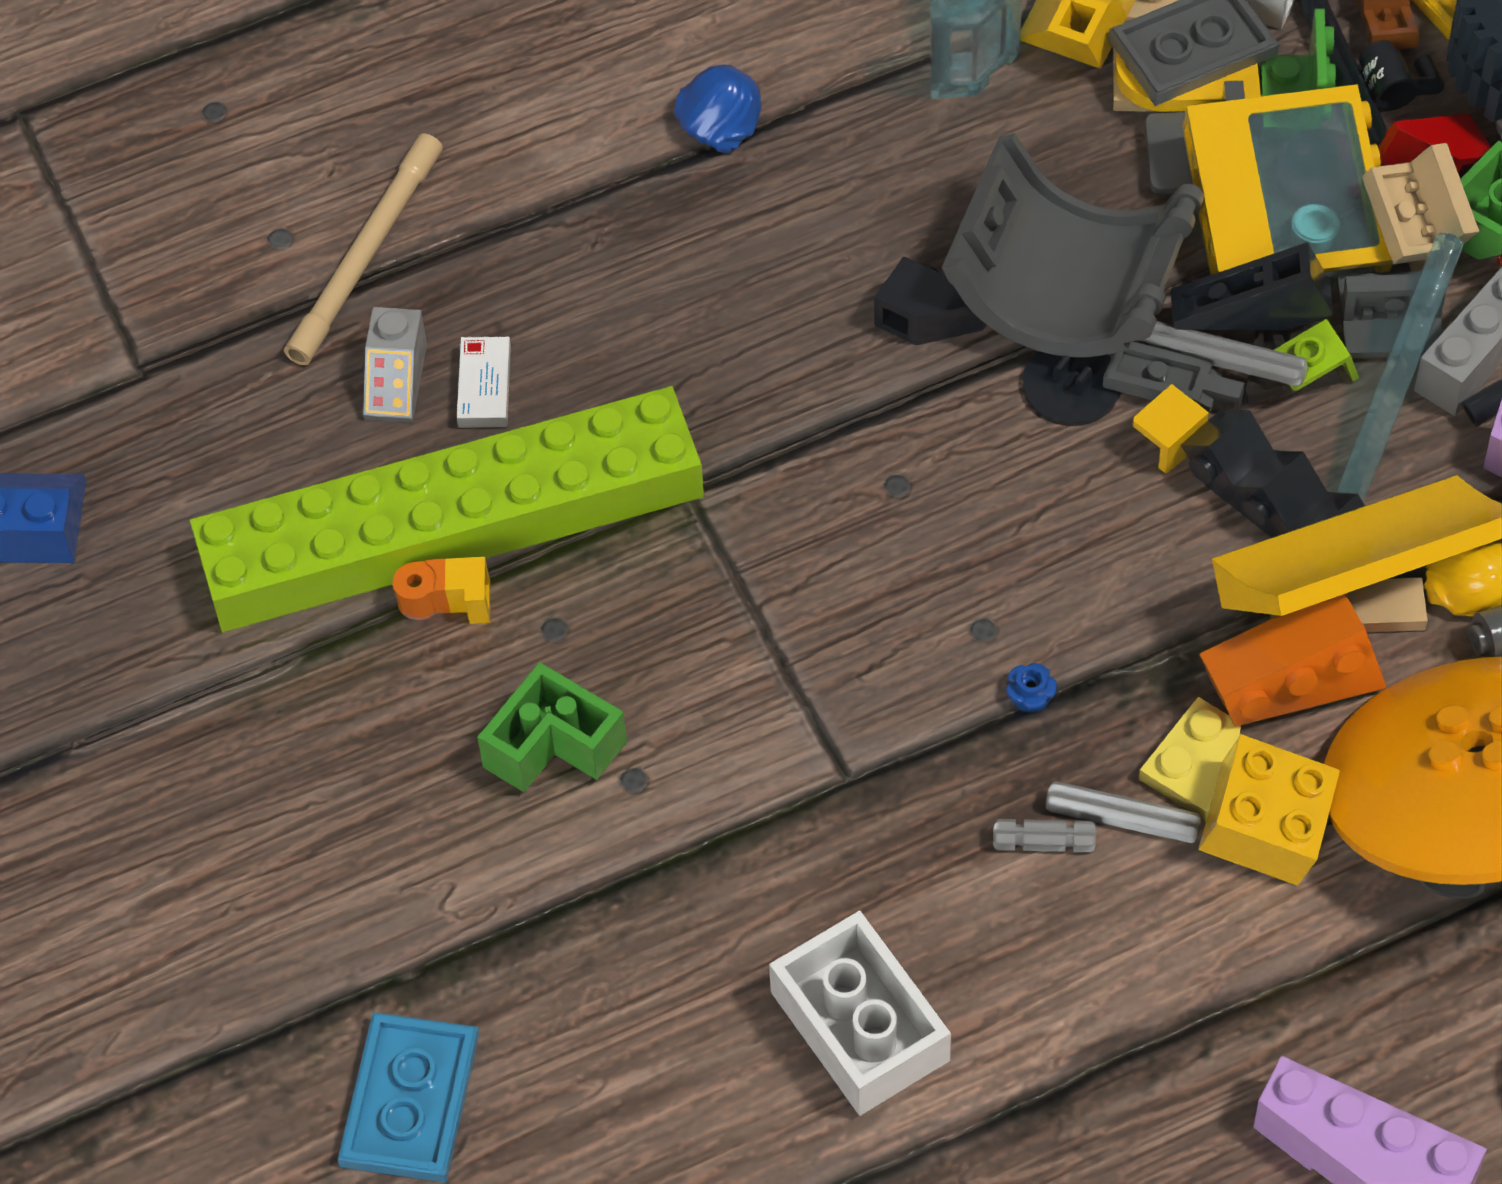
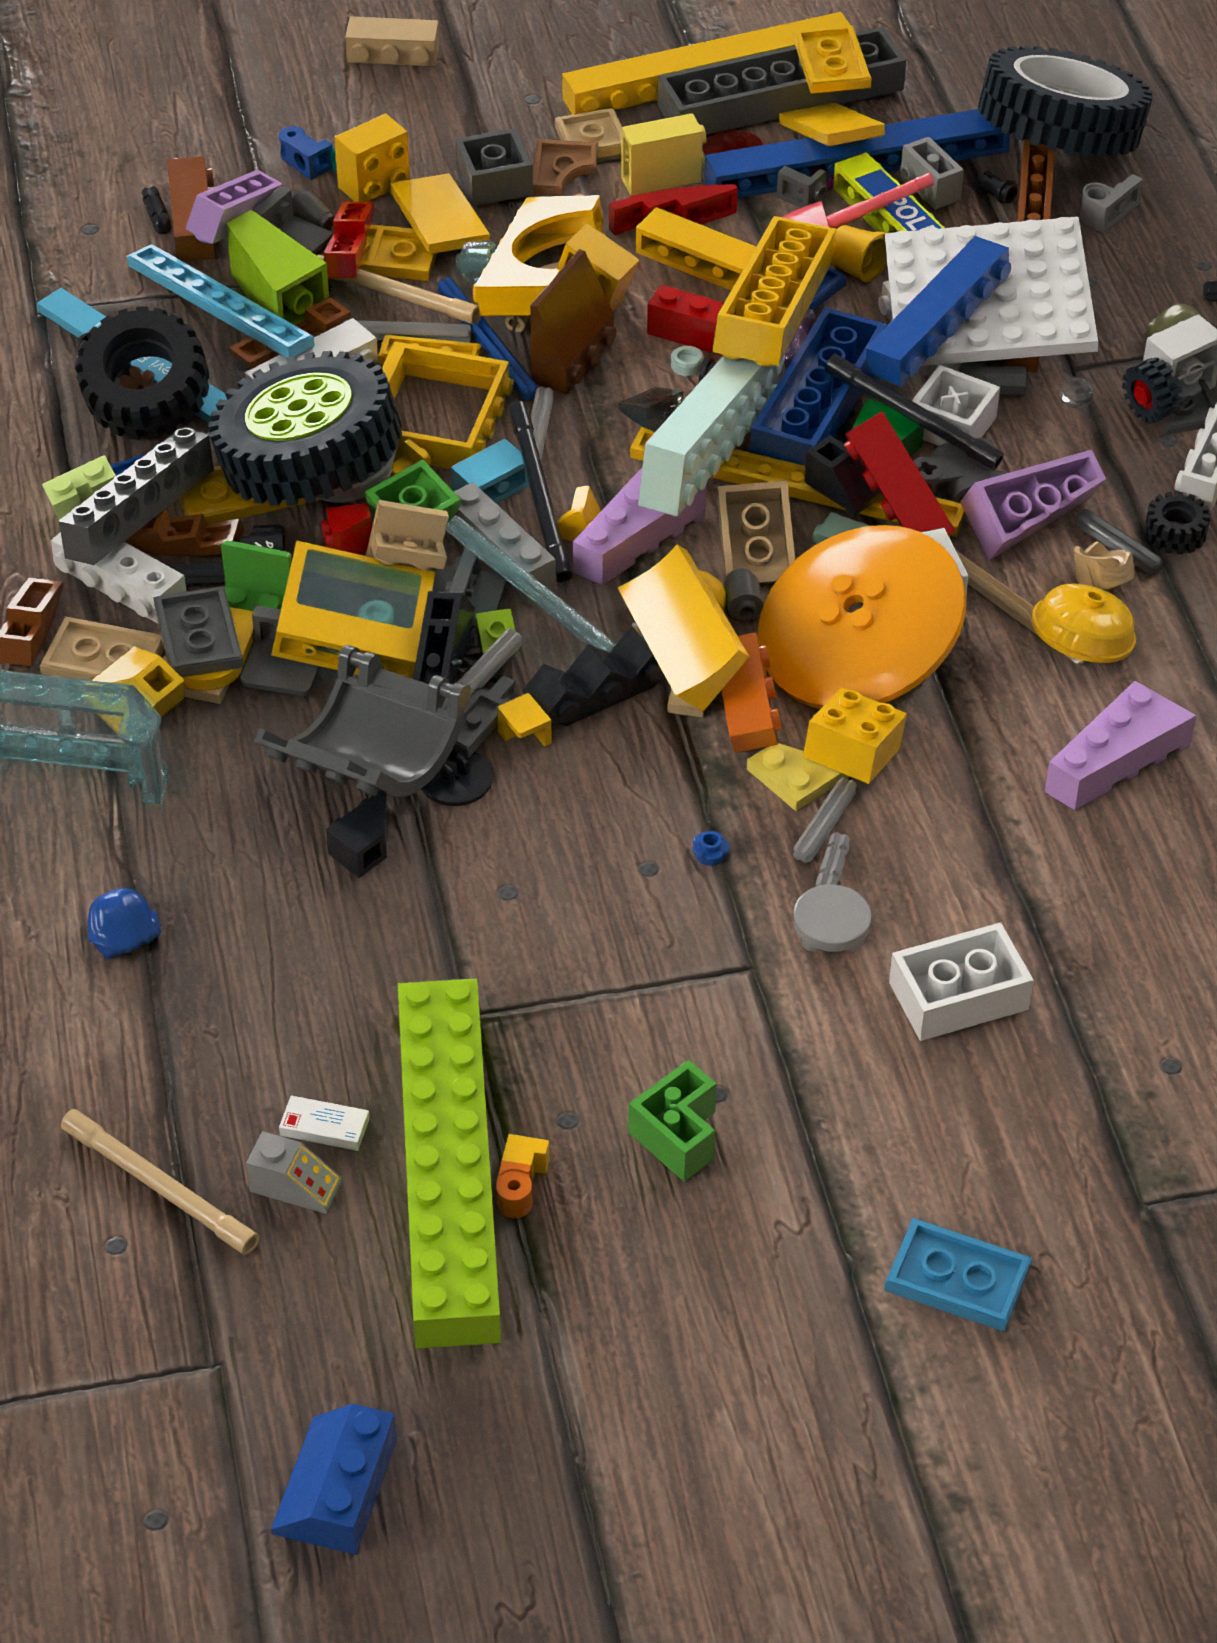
camera: 80 degrees left, 10 degrees down
(944, 849) = (832, 919): none -> light grey tile

